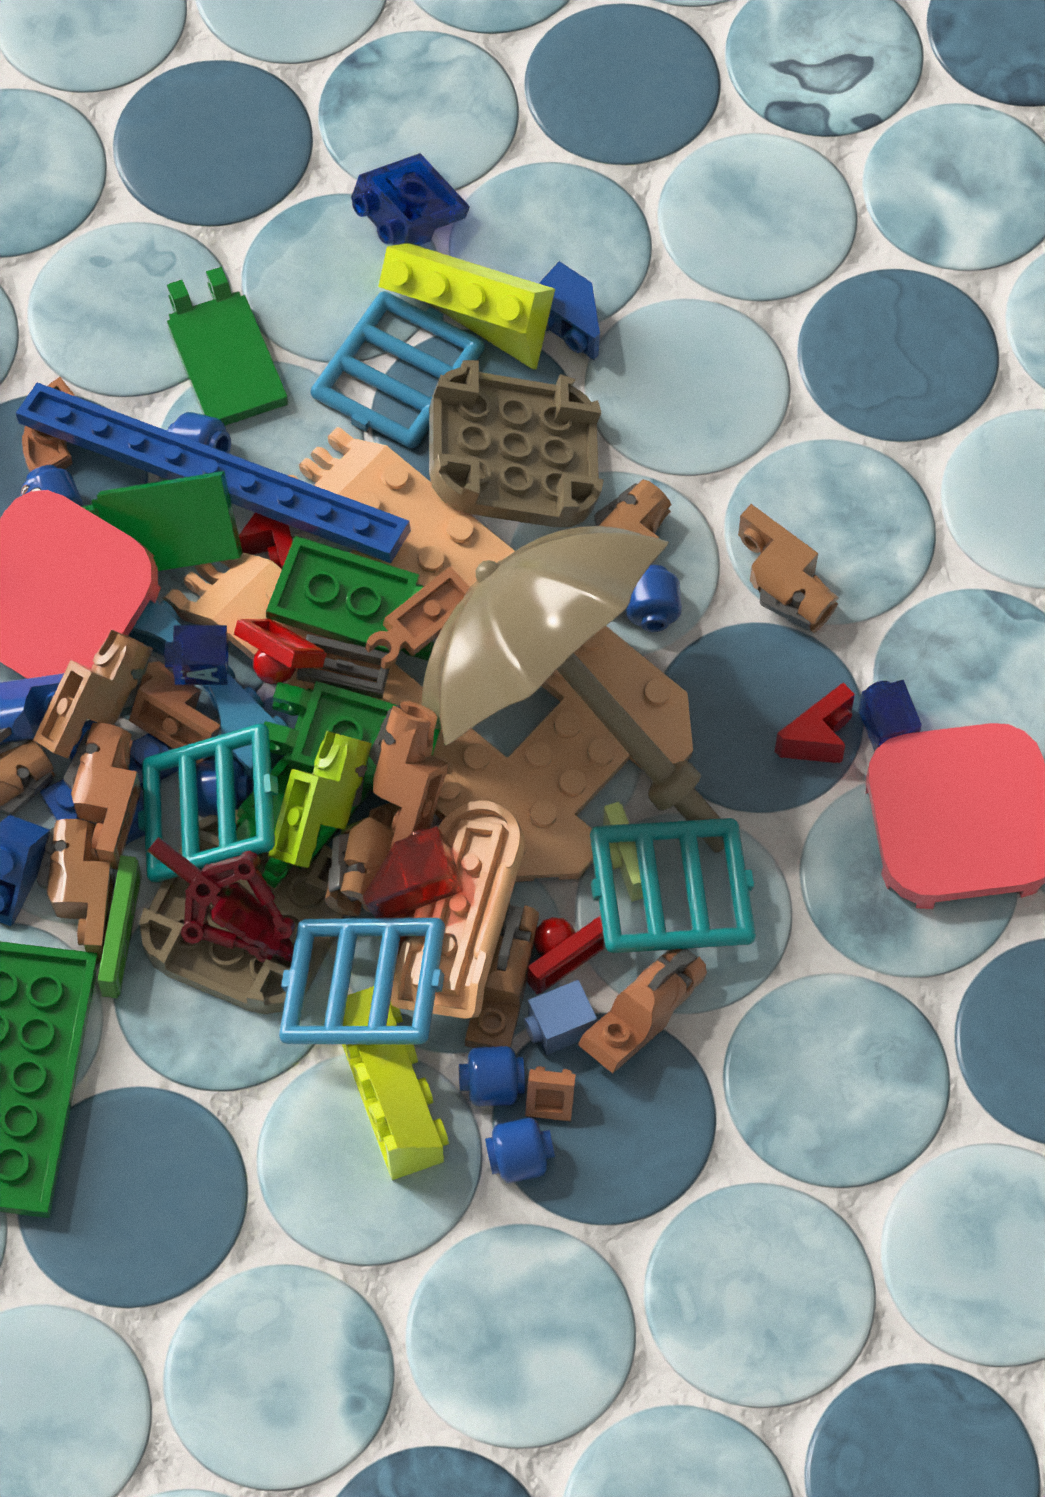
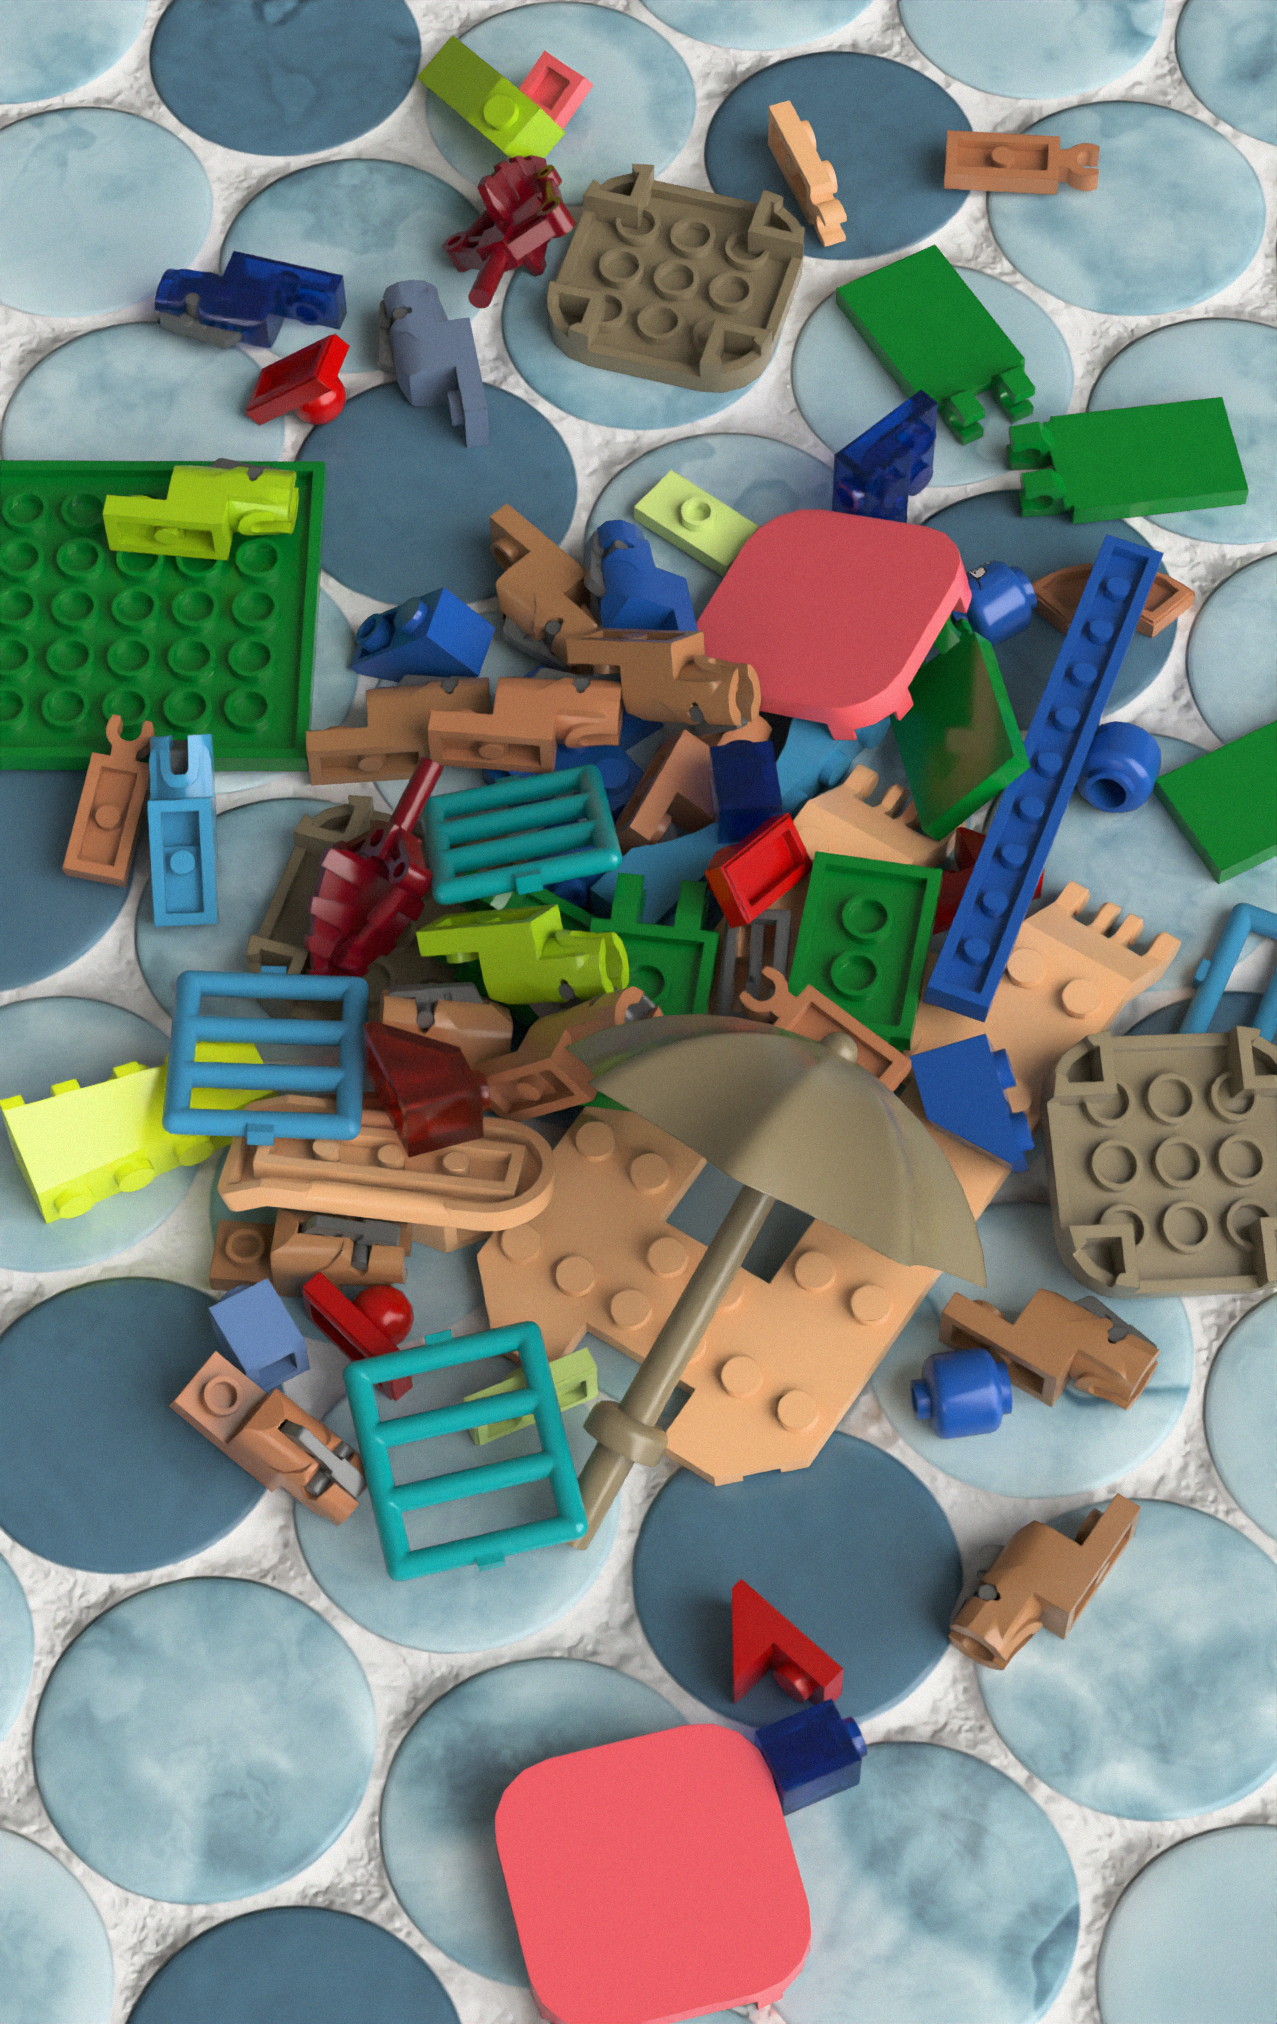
camera: 85 degrees right, 5 degrees down
(116, 1089) = (111, 809): none -> nougat plate
(119, 927) = (330, 778): bright green tile -> none
(148, 1036) = (183, 831): none -> dark azure plate
(468, 542) = (969, 1102): none -> blue slope
(492, 1076) = (162, 1257): blue head -> none
(519, 1150) = (52, 1301): blue head -> none
(550, 1094) = (139, 1336): nougat tile -> none

